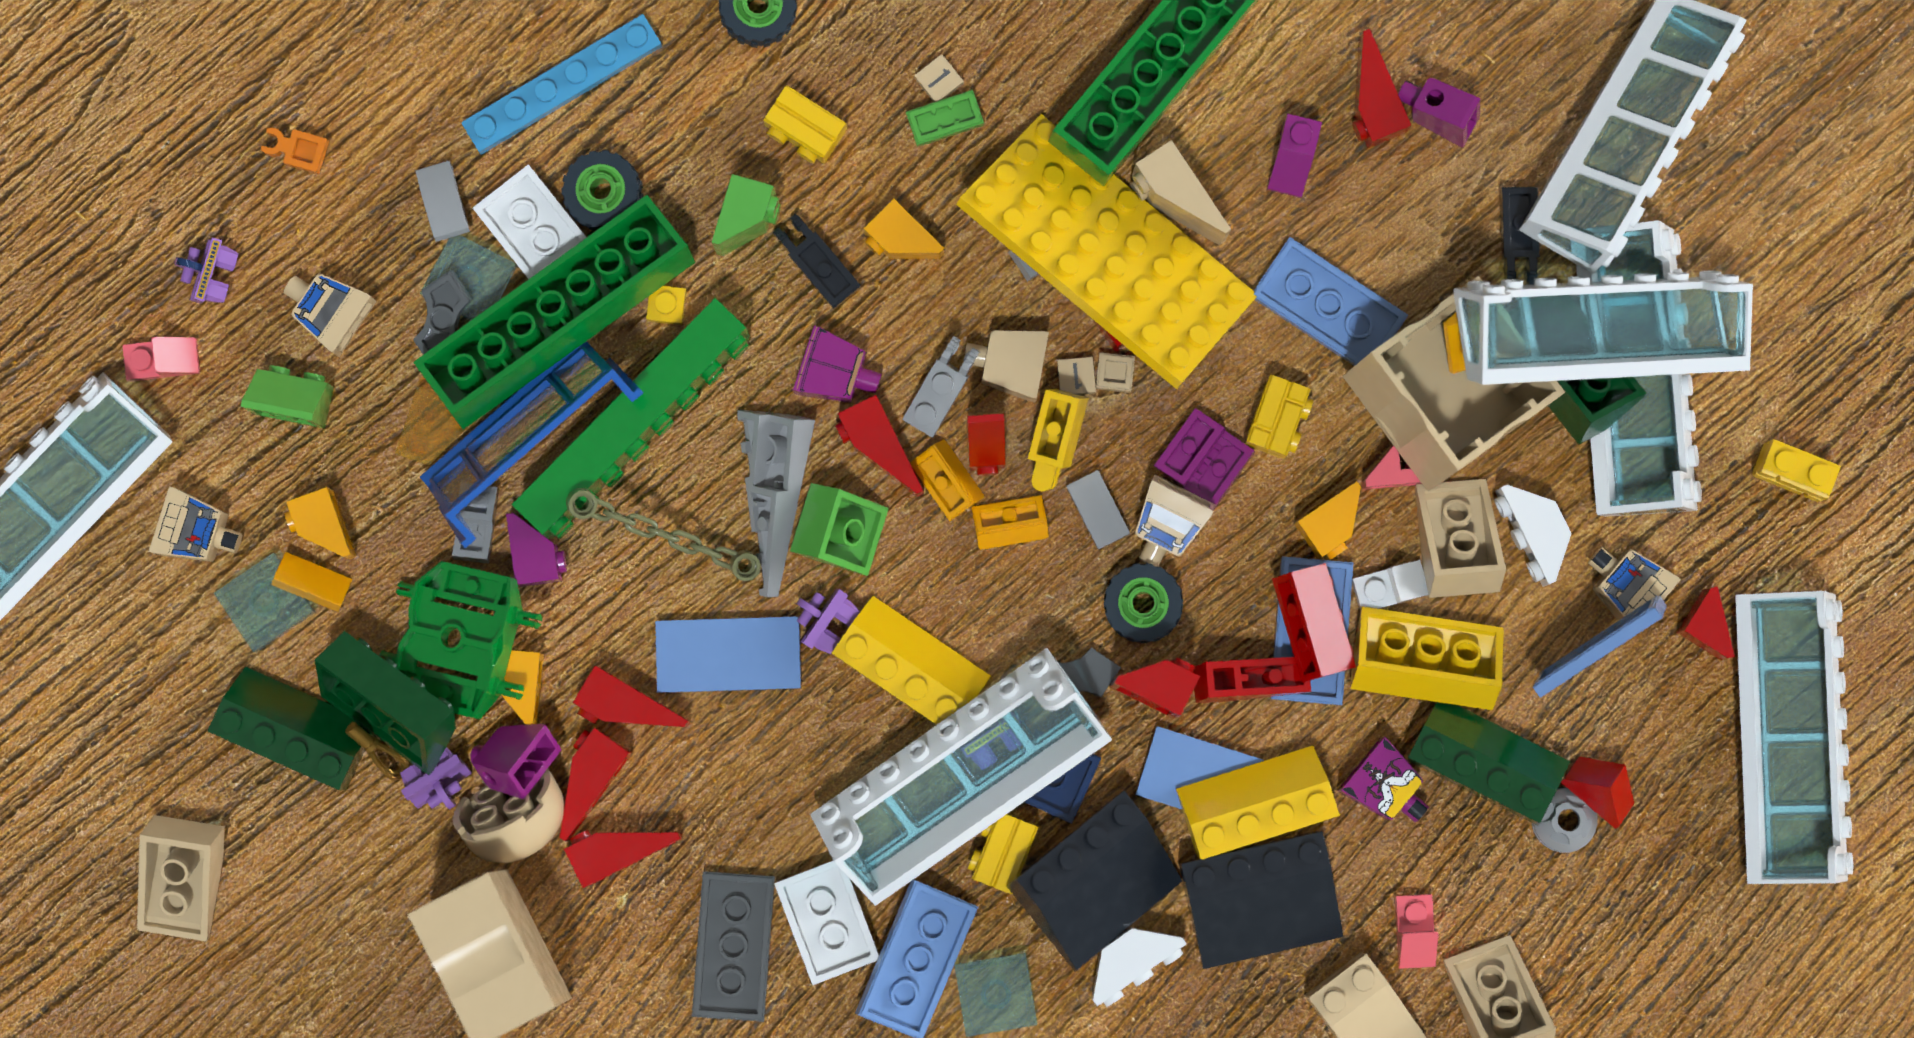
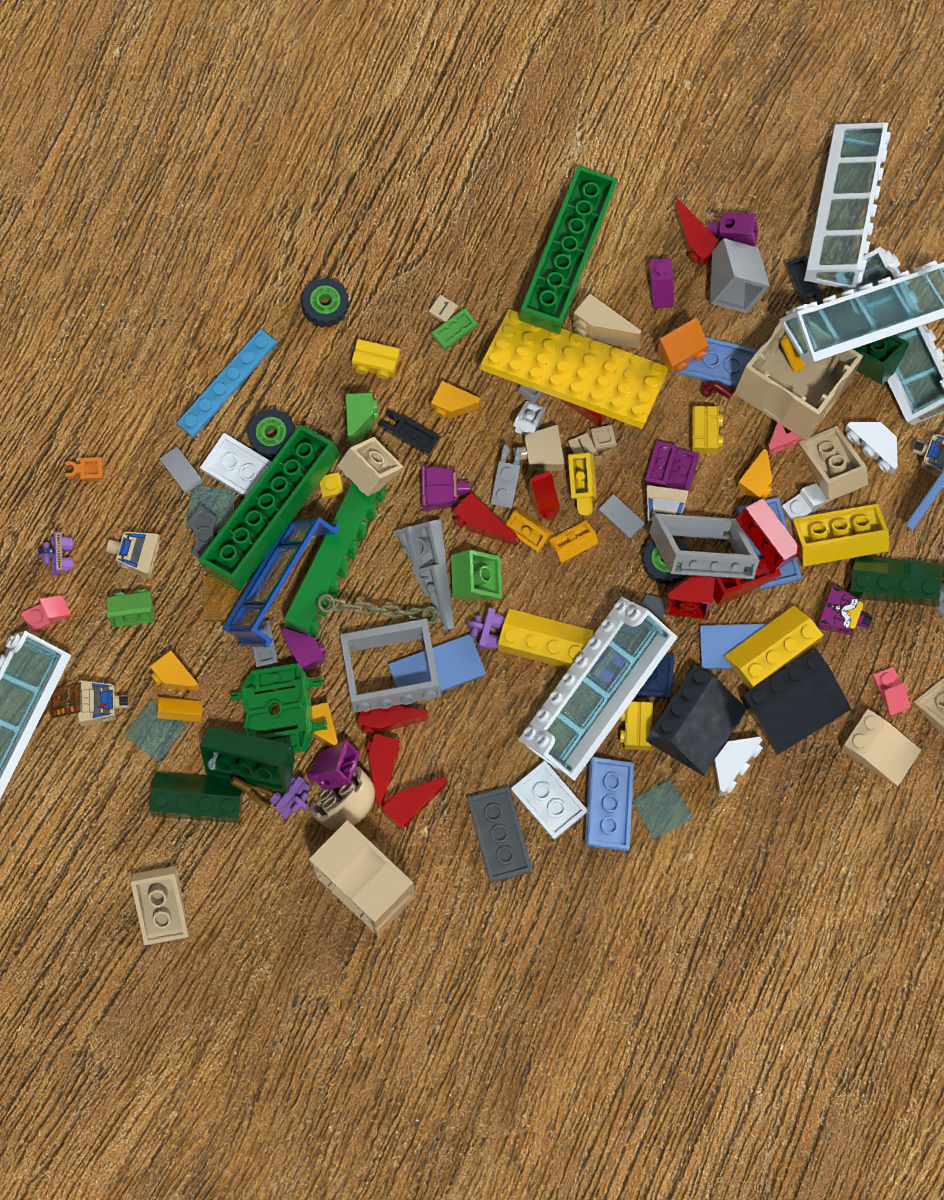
camera: 15 degrees left, 10 degrees down
(142, 507) = (65, 700): none -> clear orange piece
(659, 575) = (386, 636): none -> light grey window
(727, 306) = (370, 466): none -> tan slope
(1010, 303) = (529, 418): none -> white slope
(1190, 648) = (703, 563): none -> light grey window
(1289, 274) = (683, 346): none -> orange slope
(1322, 353) = (716, 387): none -> dark red arm
(1416, 185) = (737, 276): none -> light grey slope

